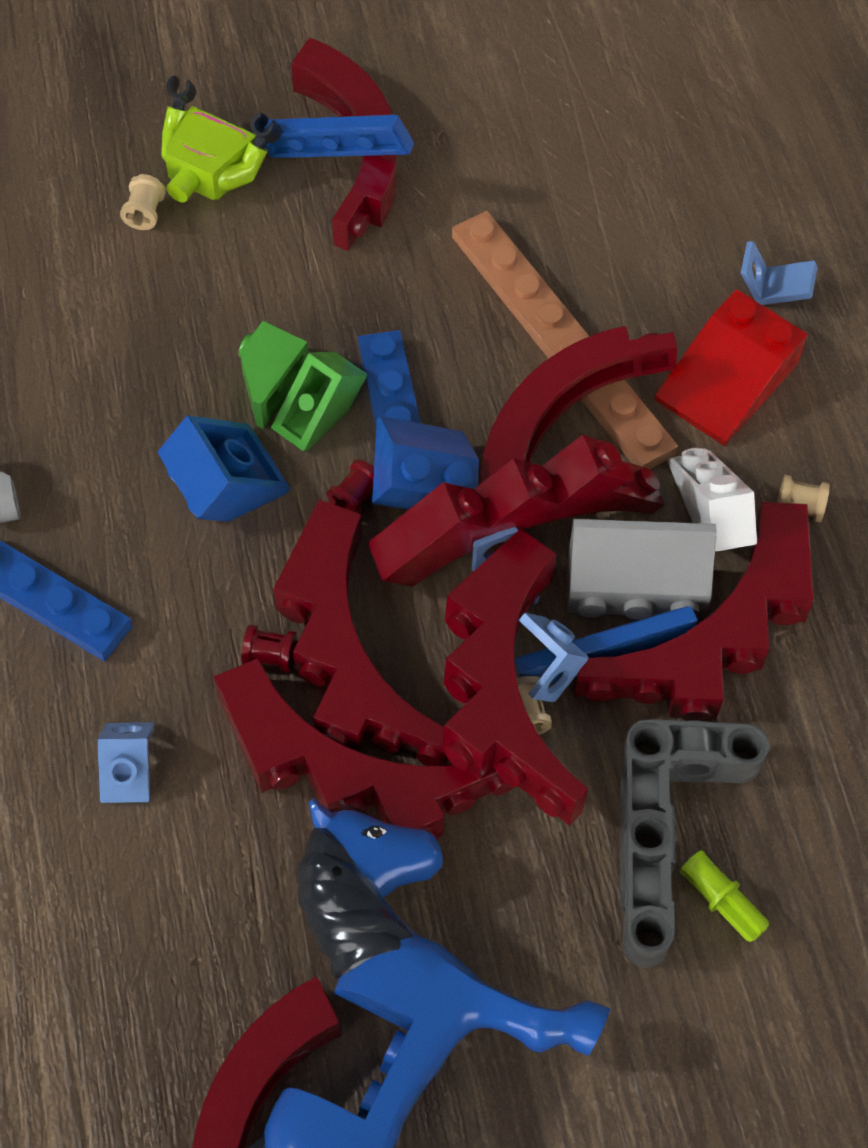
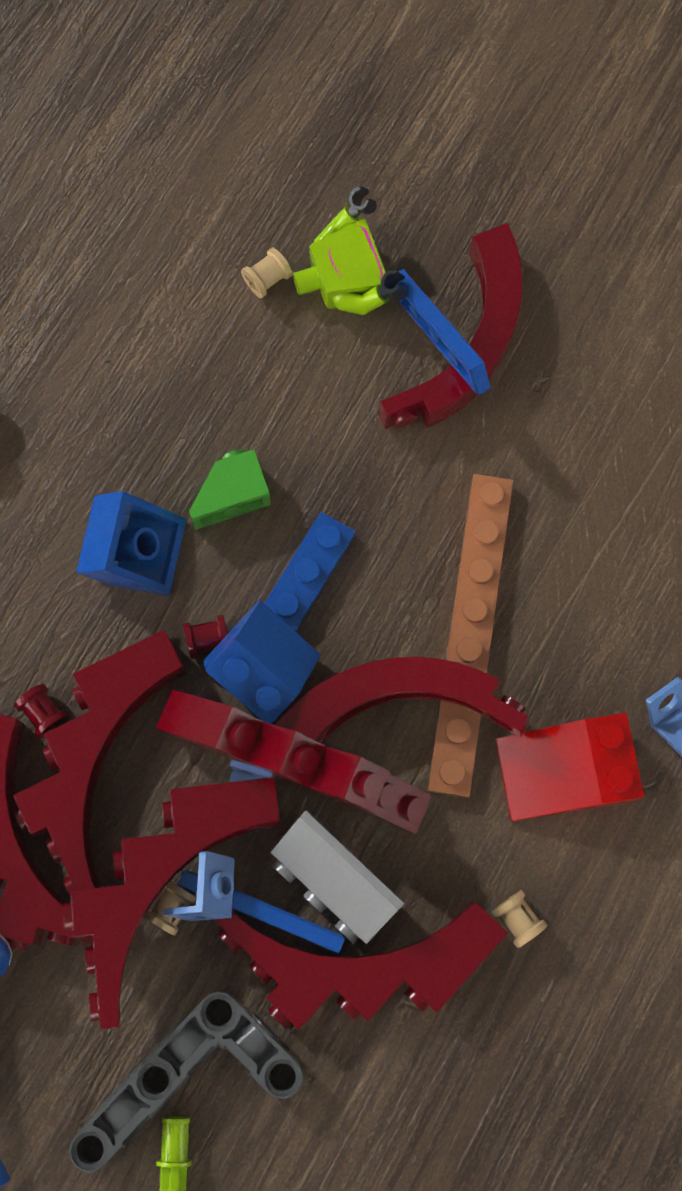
camera: 40 degrees right, 15 degrees up
(318, 398) = (246, 541): bright green slope -> none
(716, 497) = (447, 866): white slope -> none

